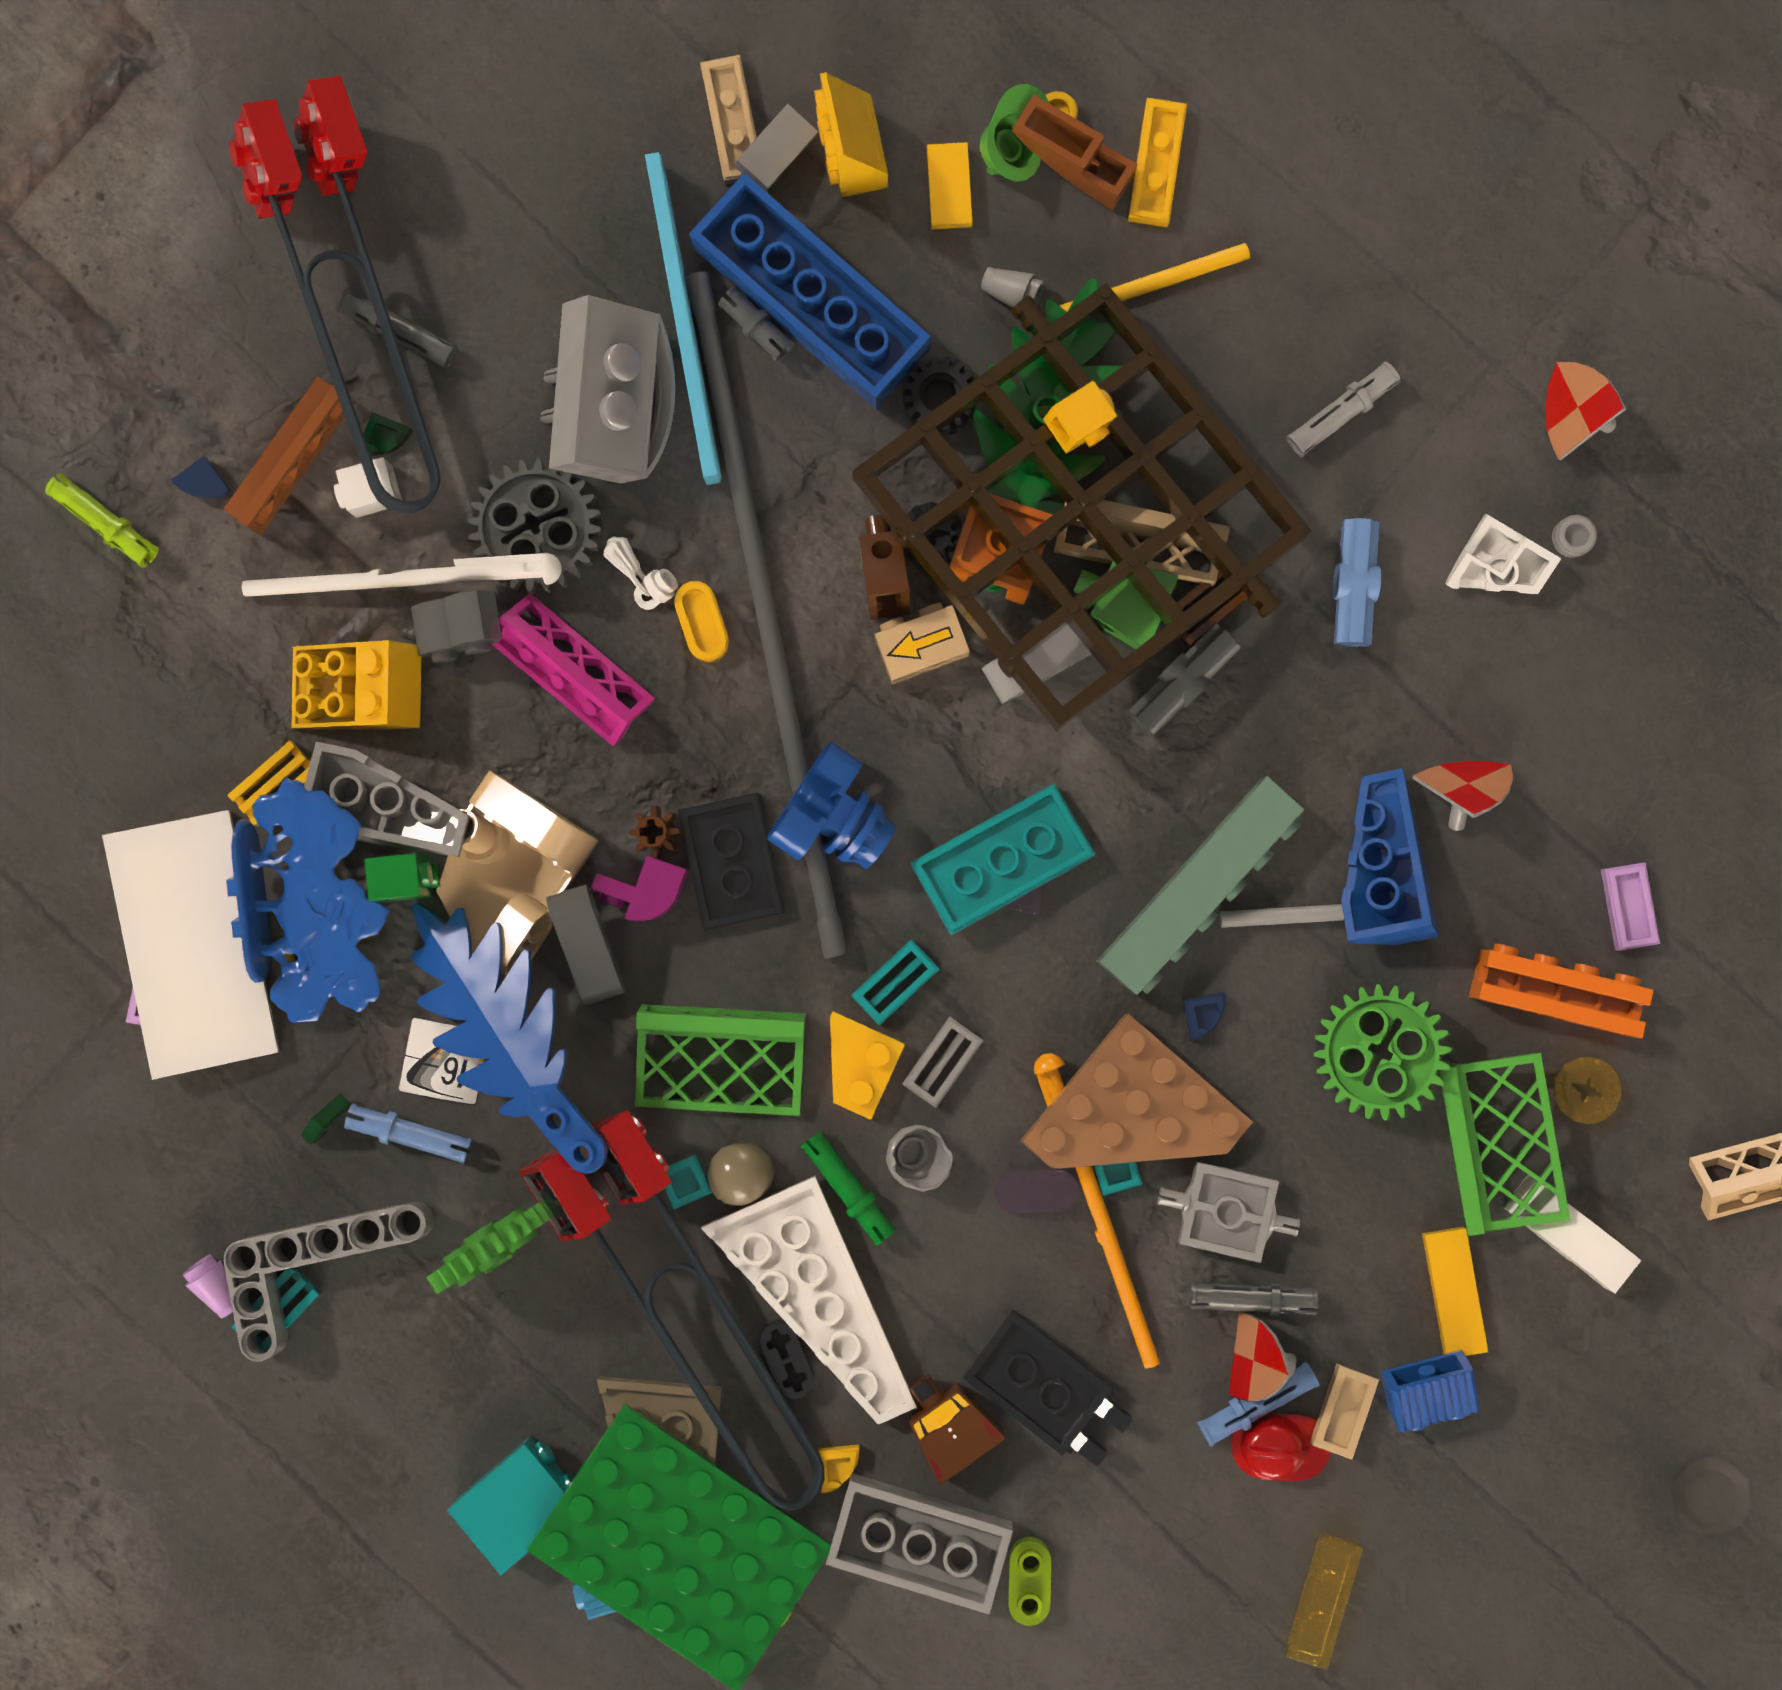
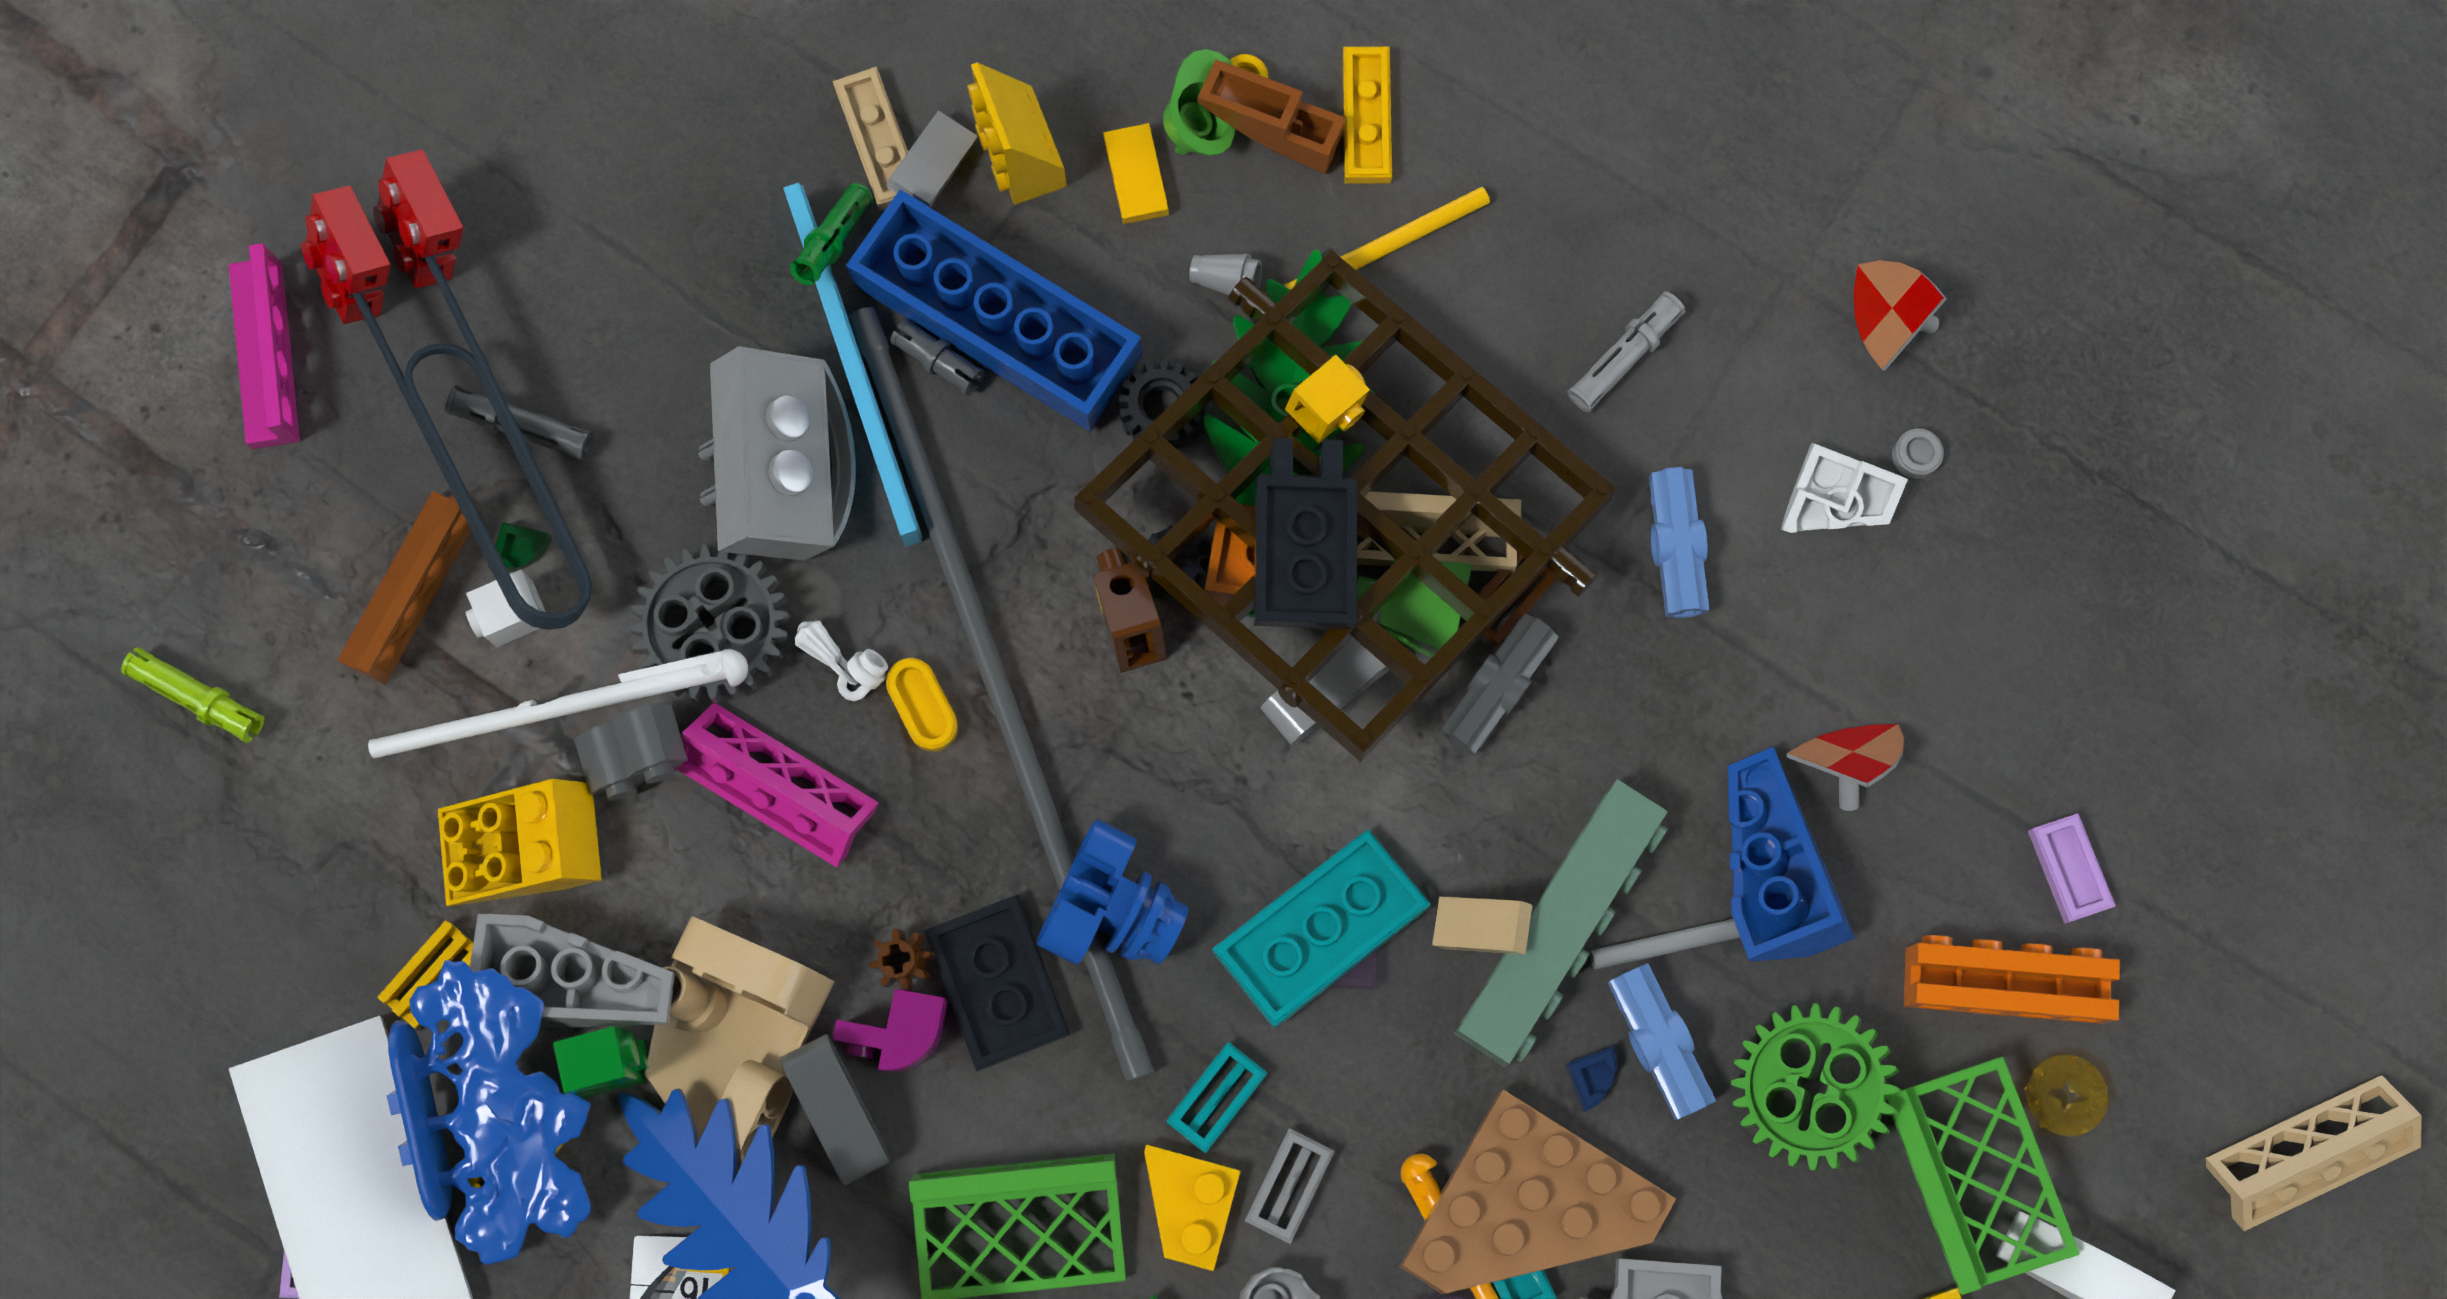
camera: 15 degrees left, 10 degrees down
(189, 230) = (263, 350): none -> dark pink fence
(202, 481) = (308, 631): dark blue tile -> none
(673, 211) = (824, 243): none -> green pin
(921, 643) = (1184, 689): tan brick -> none
(1041, 539) = (1305, 542): none -> black tile
(1134, 878) = (1482, 925): none -> tan tile
(1264, 995) = (1661, 1041): none -> medium blue piece

